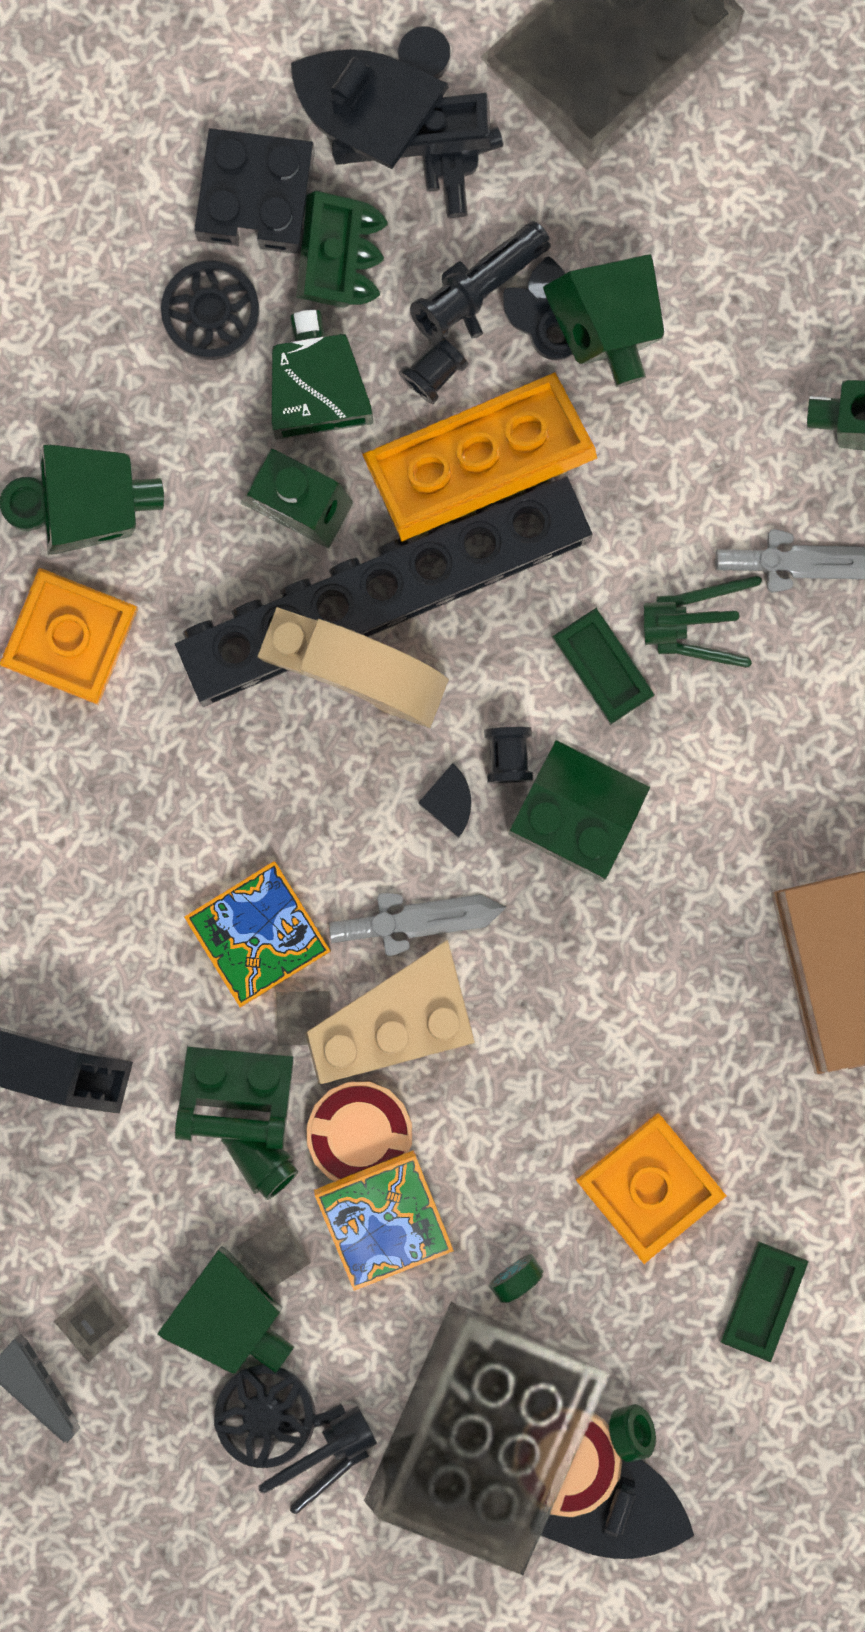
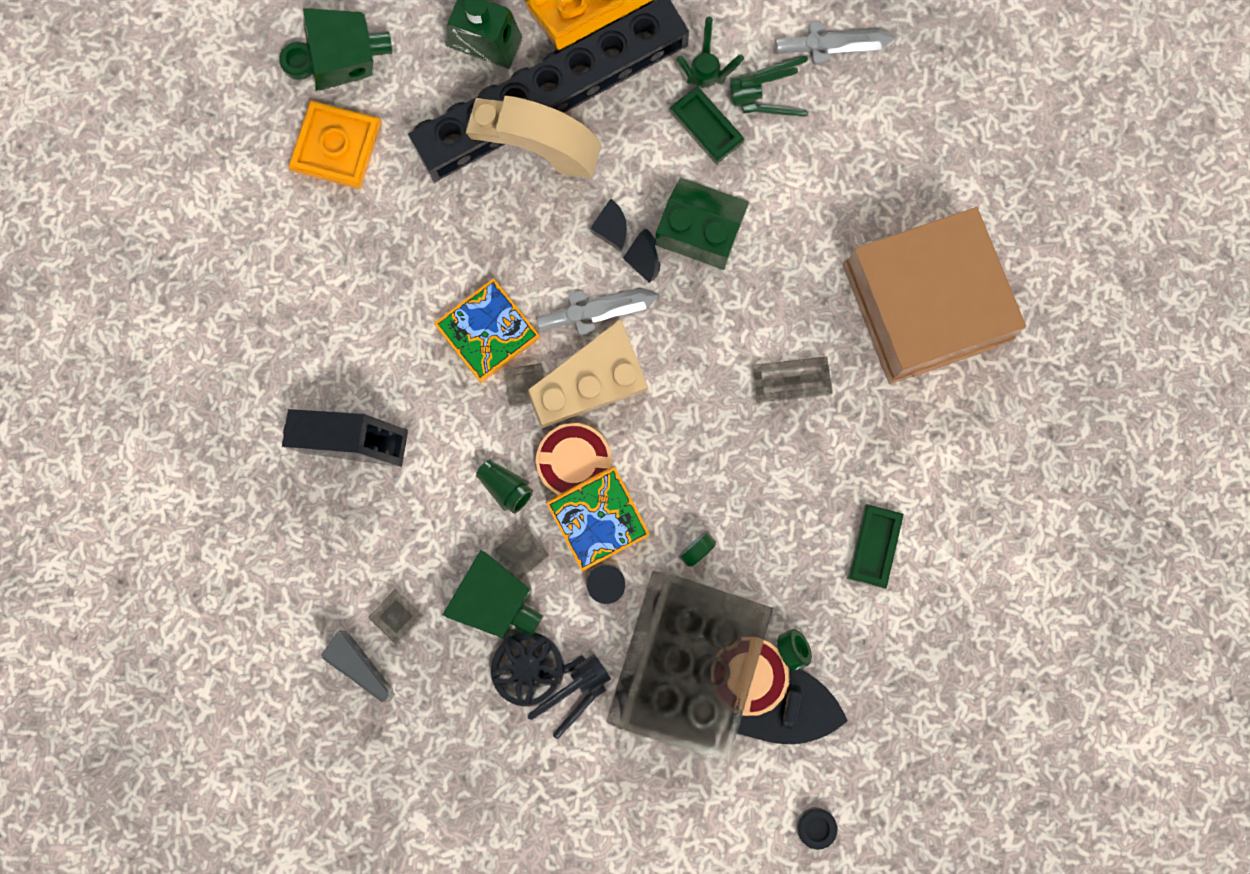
camera: 10 degrees left, 5 degrees down
(235, 1082) = (482, 434): dark green plate -> none
(385, 1311) = (606, 584): none -> black tile
(490, 853) = (643, 256): none -> black tile
(509, 754) = (649, 188): black bush -> none
(612, 583) = (706, 66): none -> dark green plant
(651, 1187) = (784, 475): light orange tile -> none
(723, 1052) = (824, 376): none -> clear smoke tile

